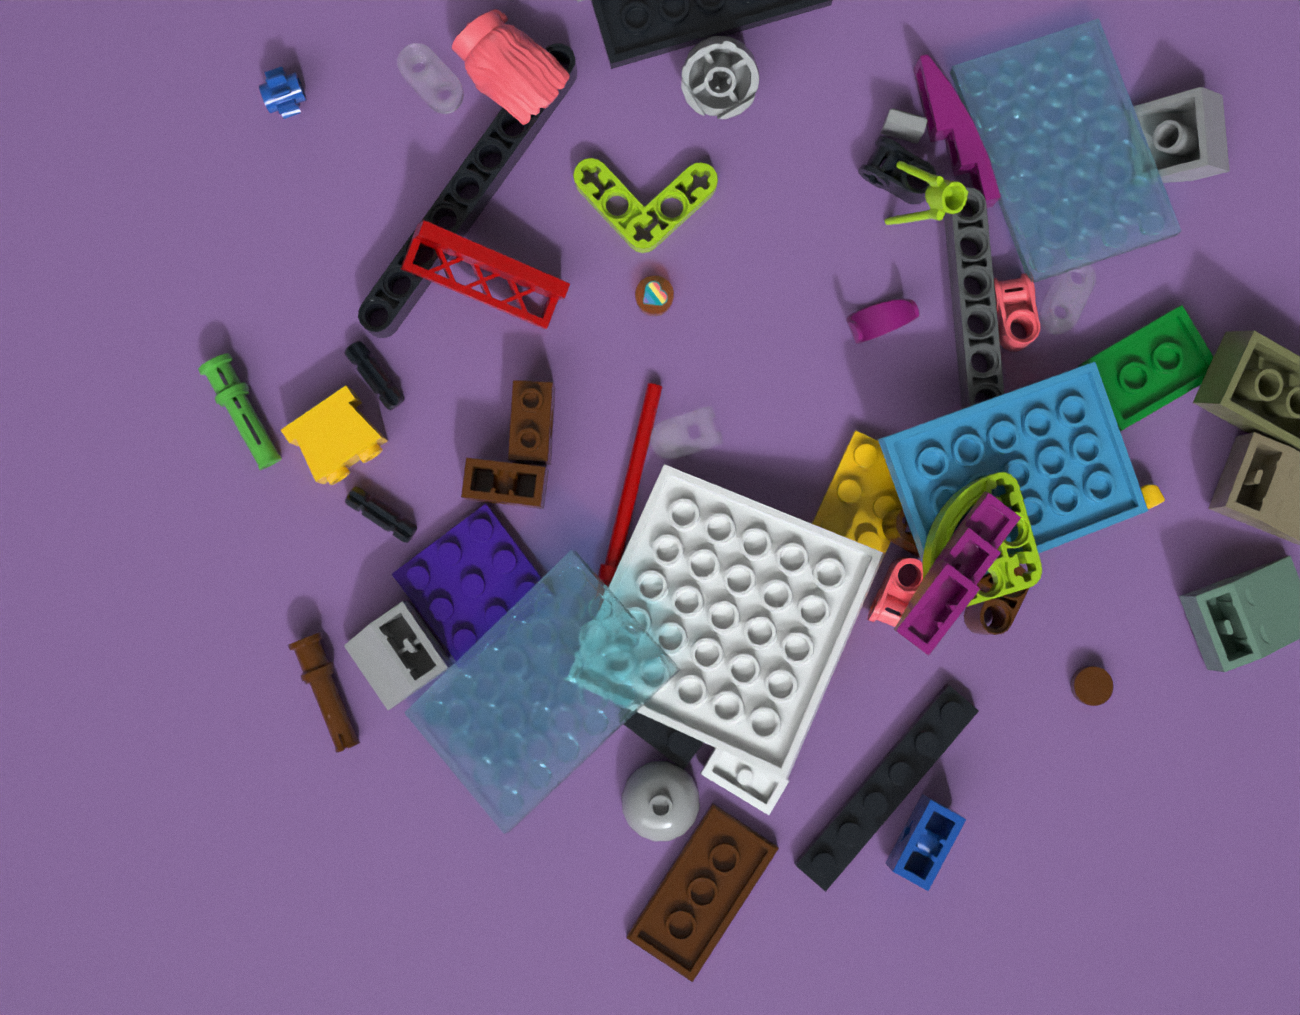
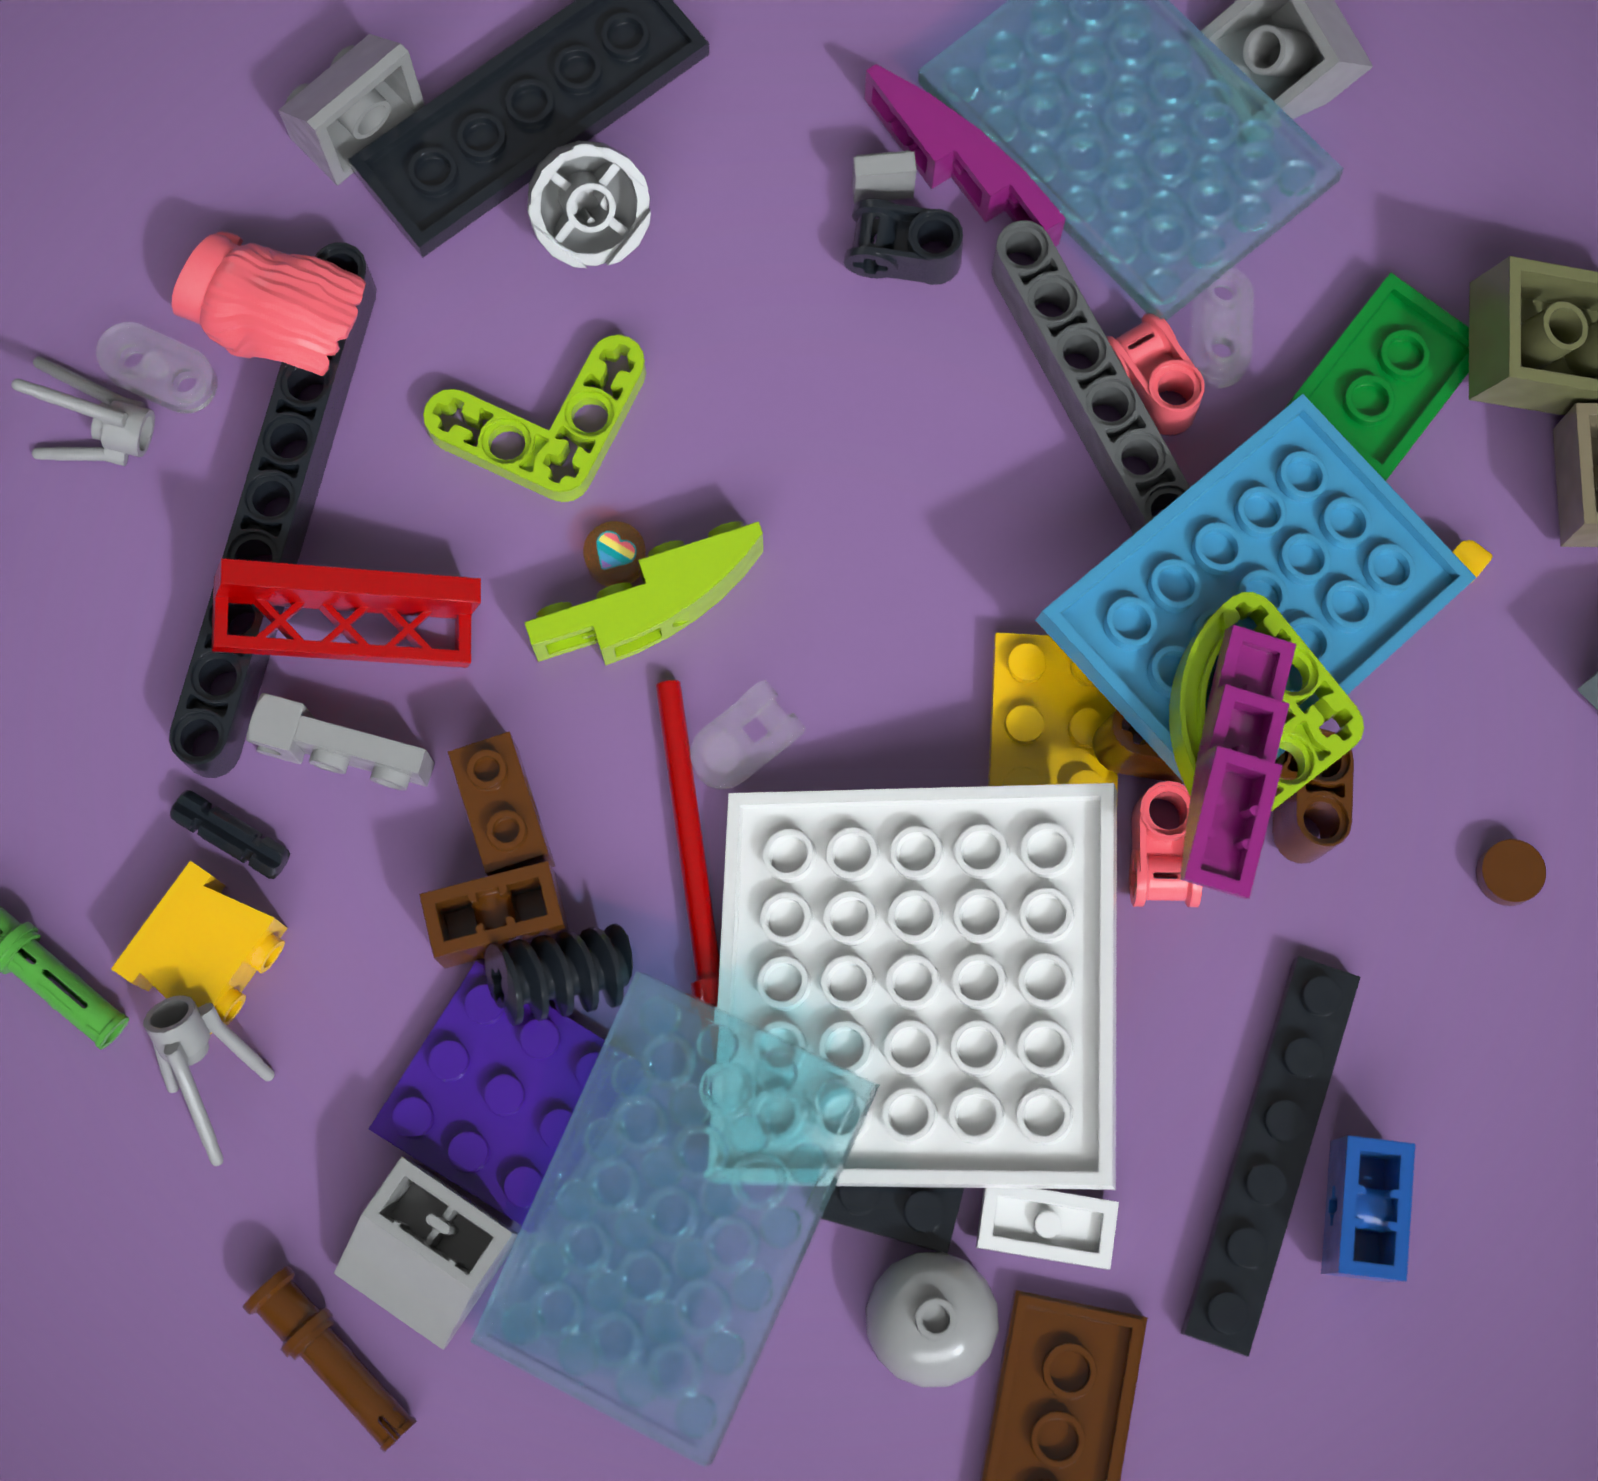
camera: 25 degrees left, 10 degrees down
(304, 488) = (181, 1039): none -> light grey plant
(381, 514) = (318, 1043): black axle -> none
(397, 107) = (119, 422): none -> light grey plant
(430, 330) = (290, 731): none -> light grey plate
(529, 530) = (559, 971): none -> black piece
(681, 333) = (676, 591): none -> lime slope
(881, 318) = (968, 457): magenta helmet -> none
(941, 195) = (977, 242): lime plant -> none

